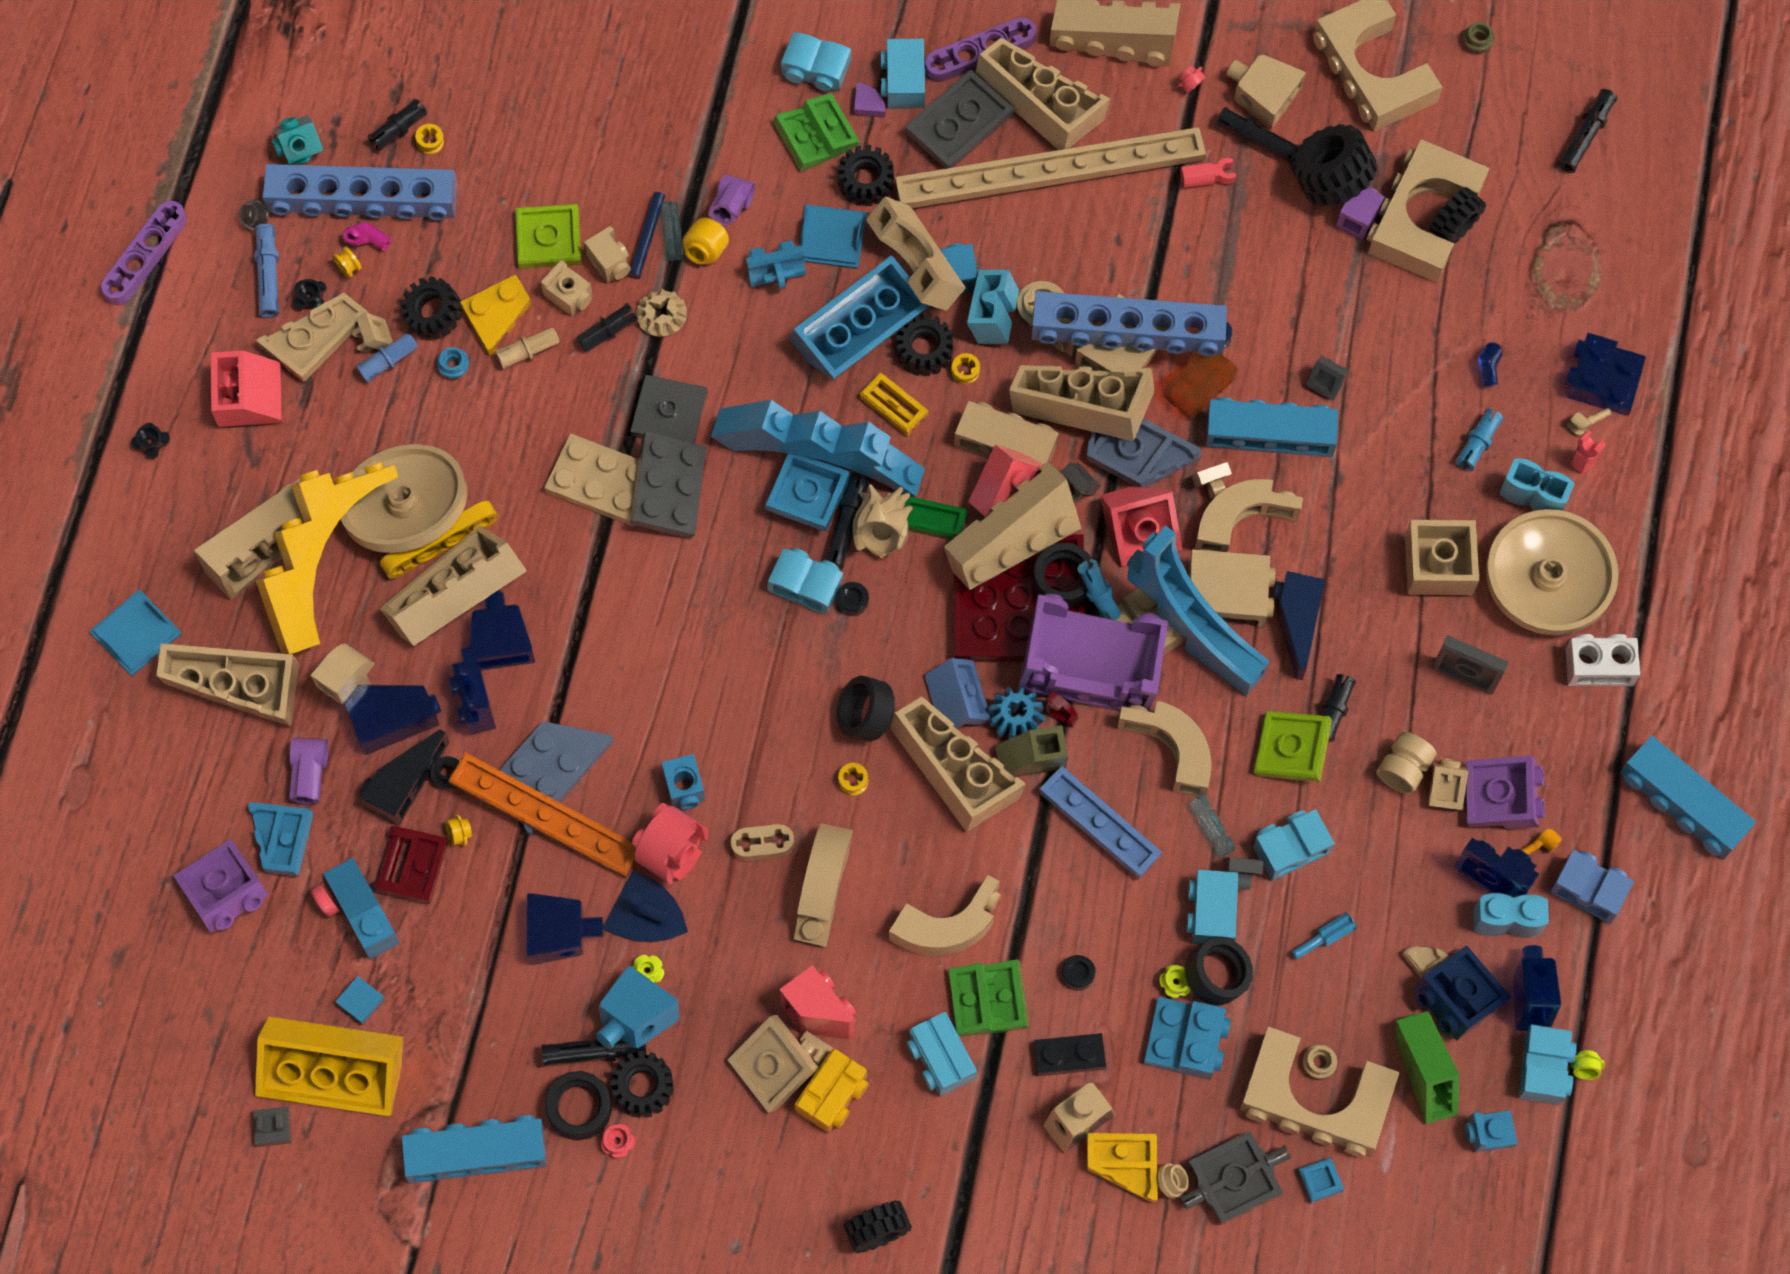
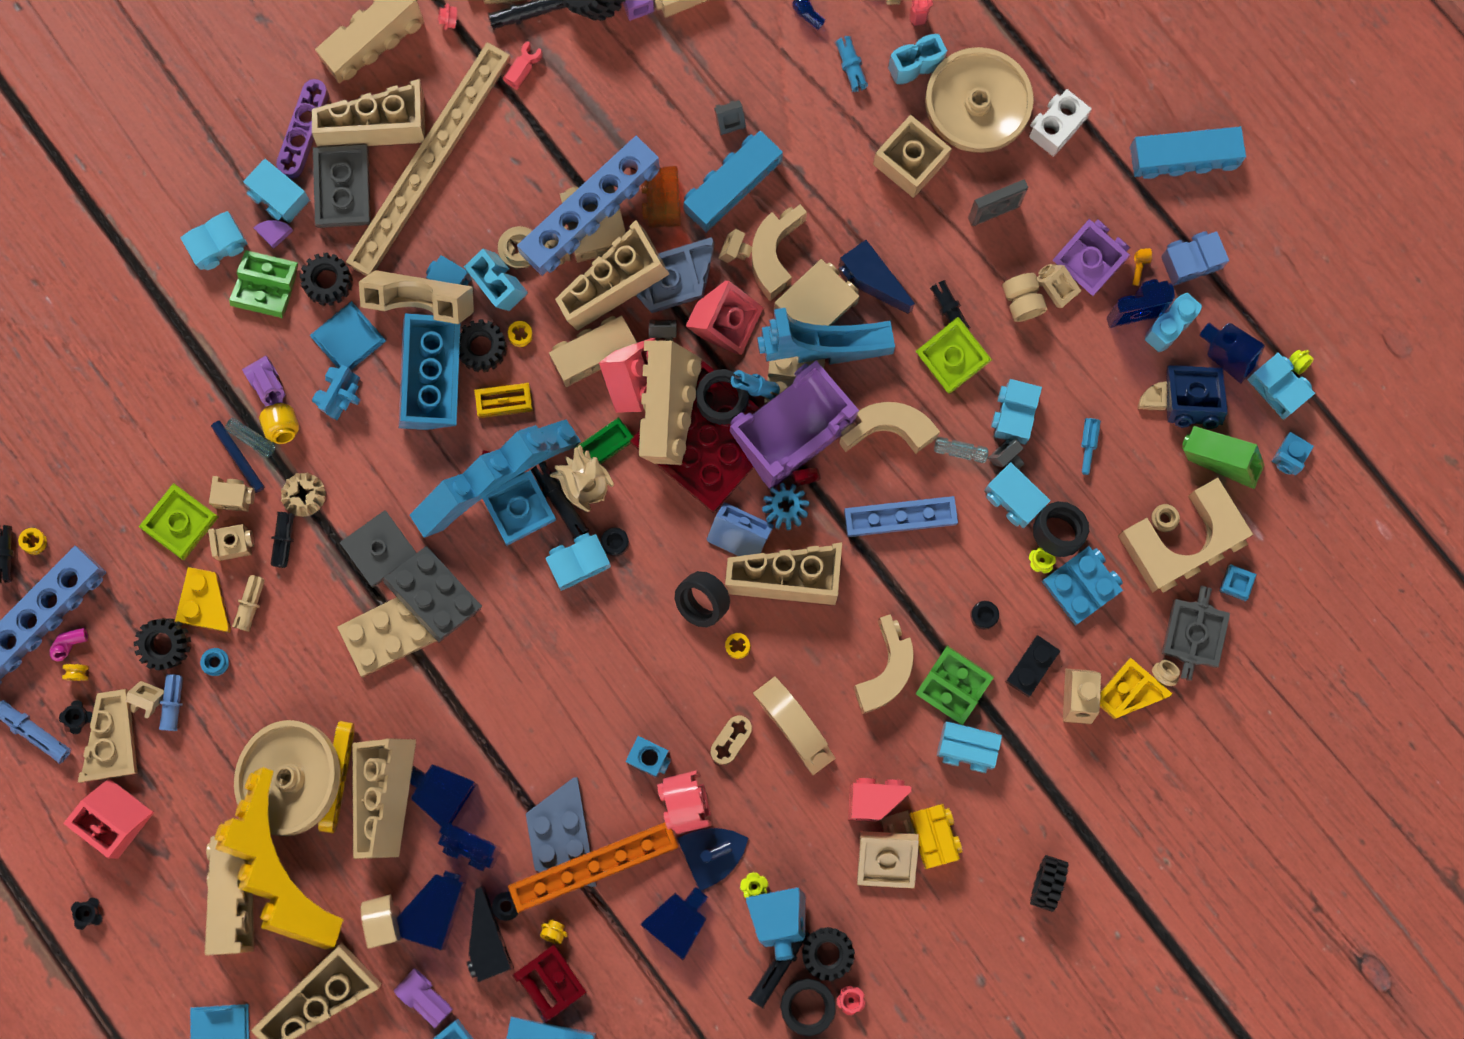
camera: 50 degrees left, 10 degrees up
(1034, 751) = (821, 518): olive slope -> none

